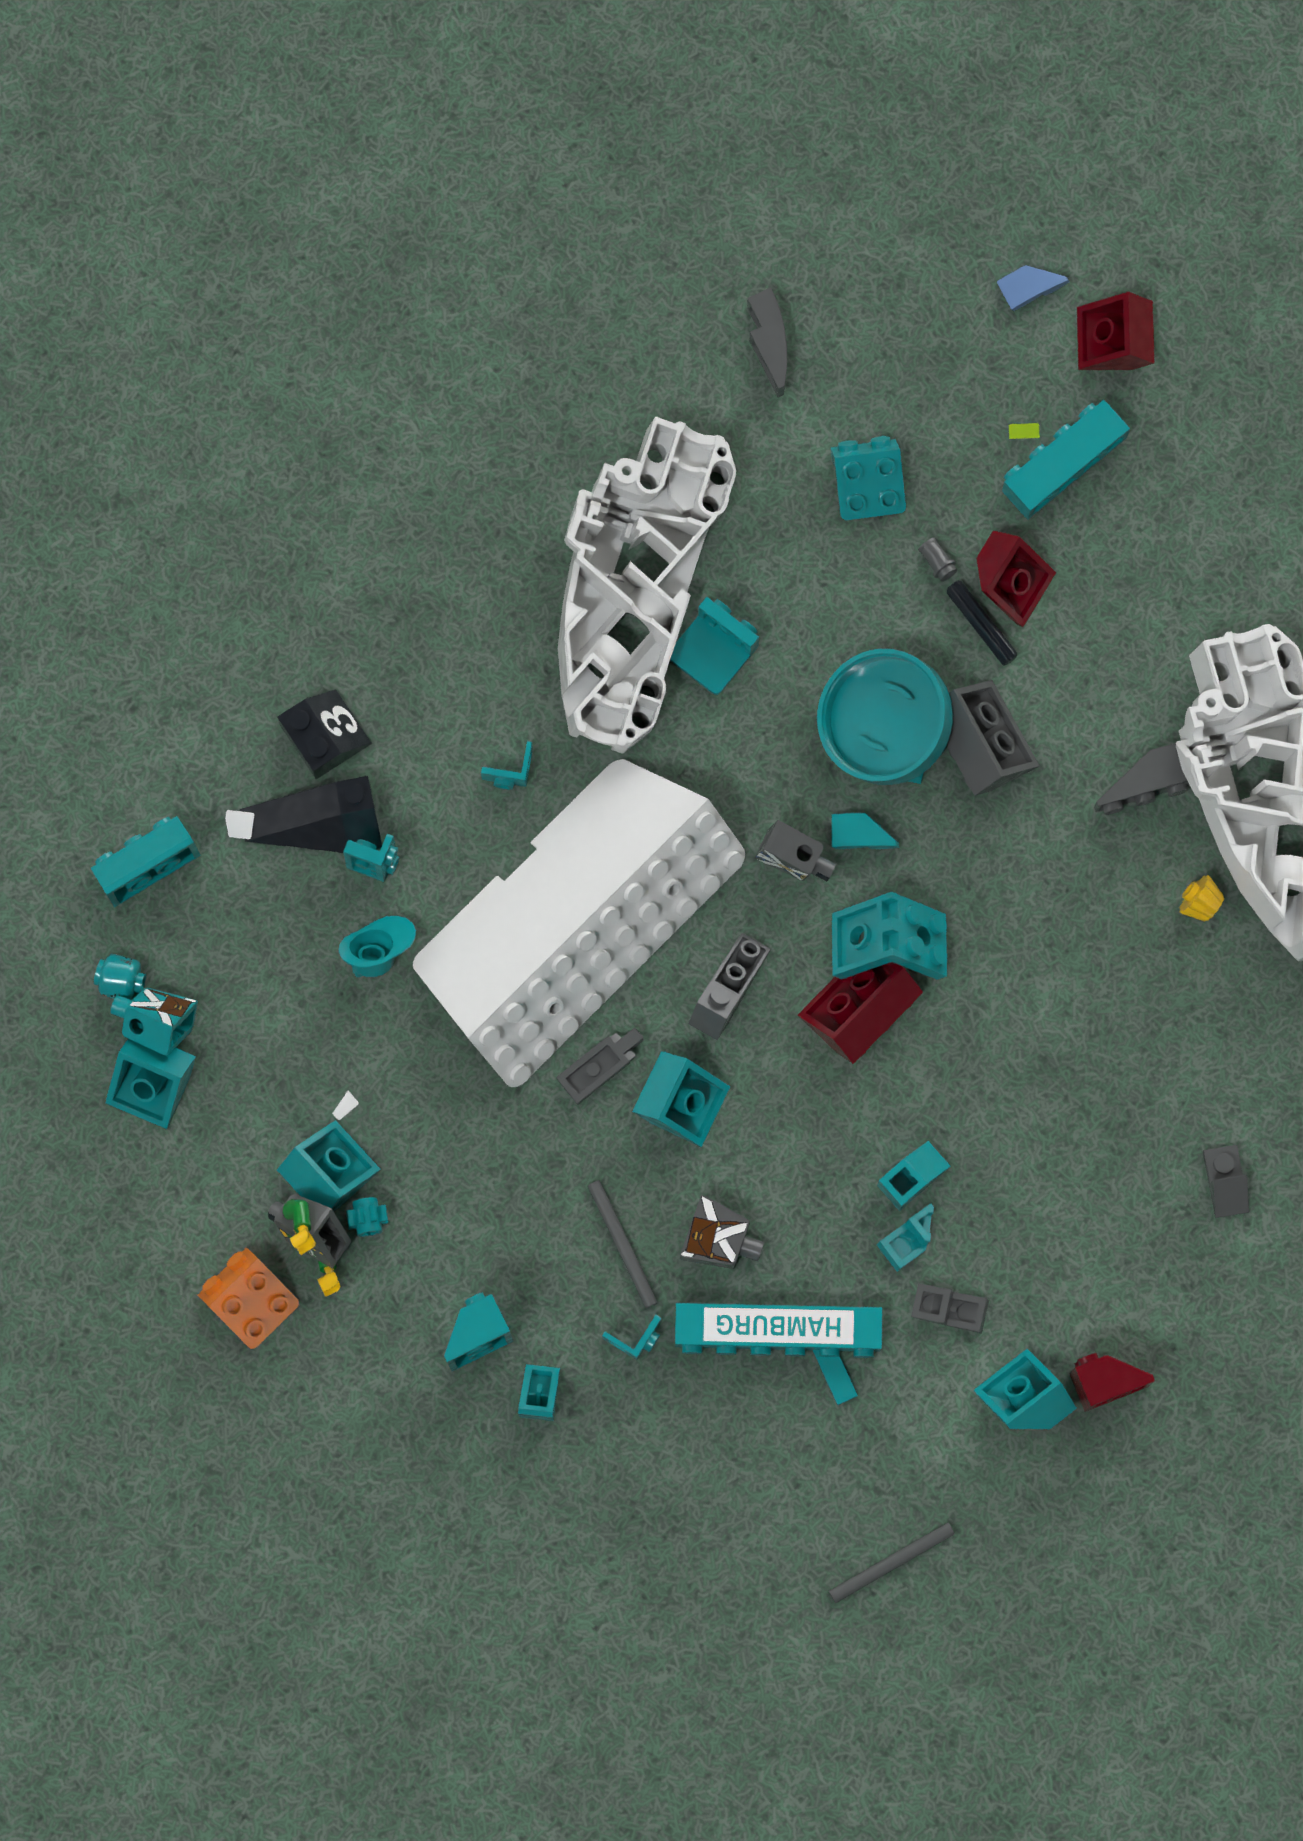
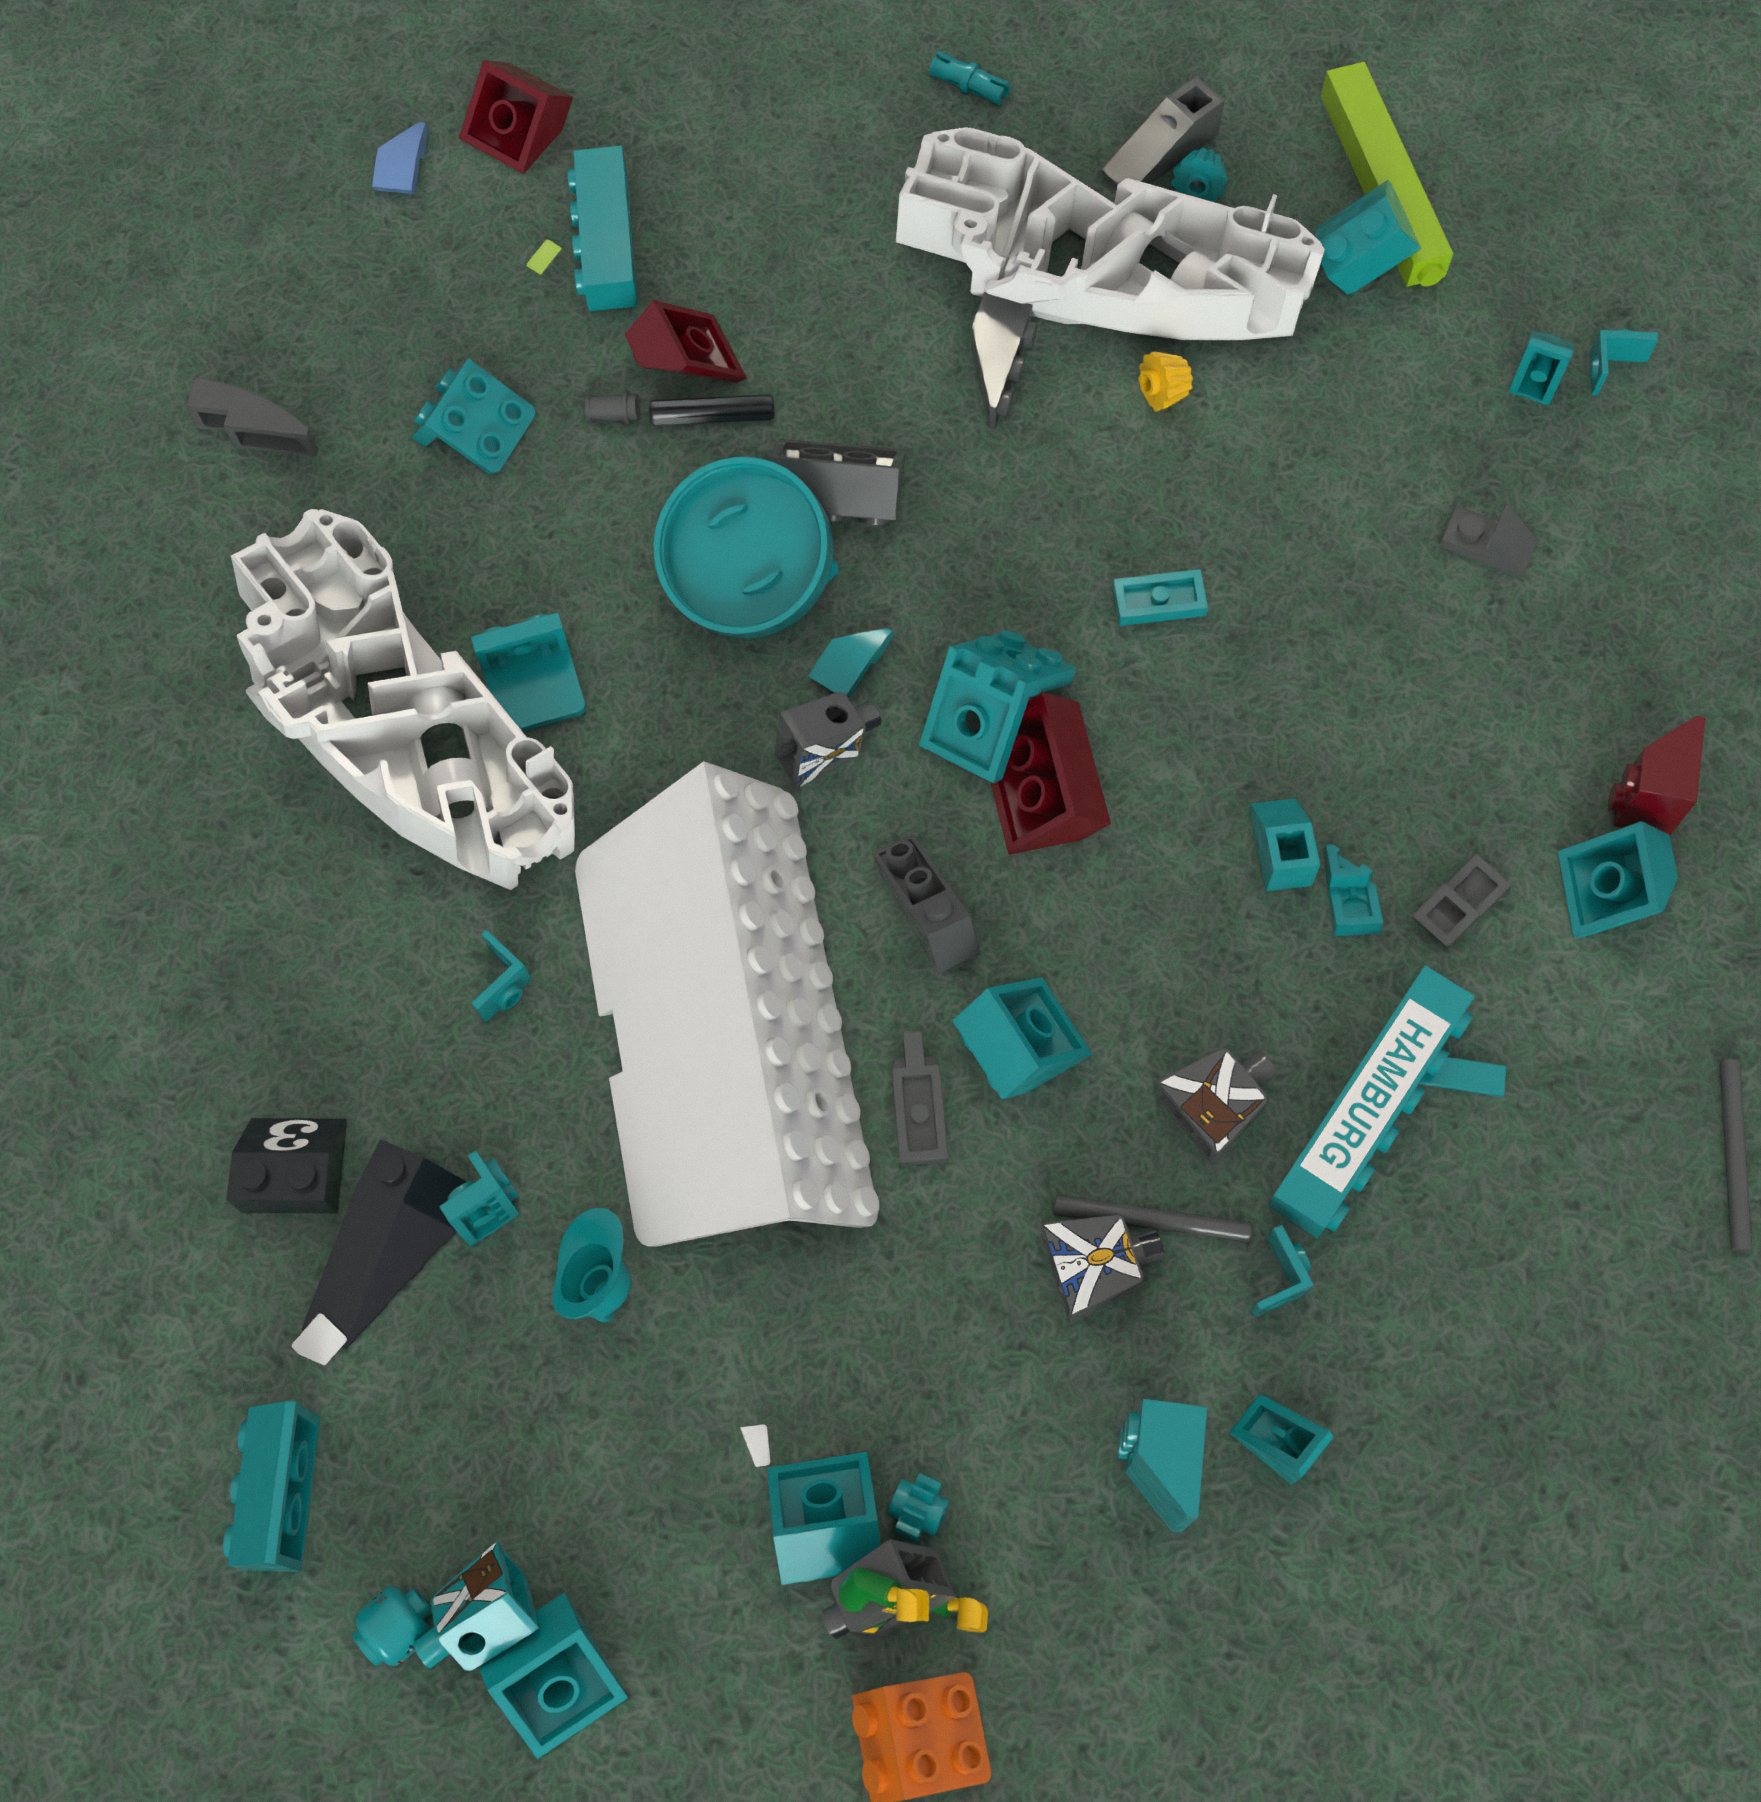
camera: 55 degrees left, 10 degrees down
(572, 1228) = (1097, 1261): none -> torso
(1036, 996) = (1159, 597): none -> teal plate

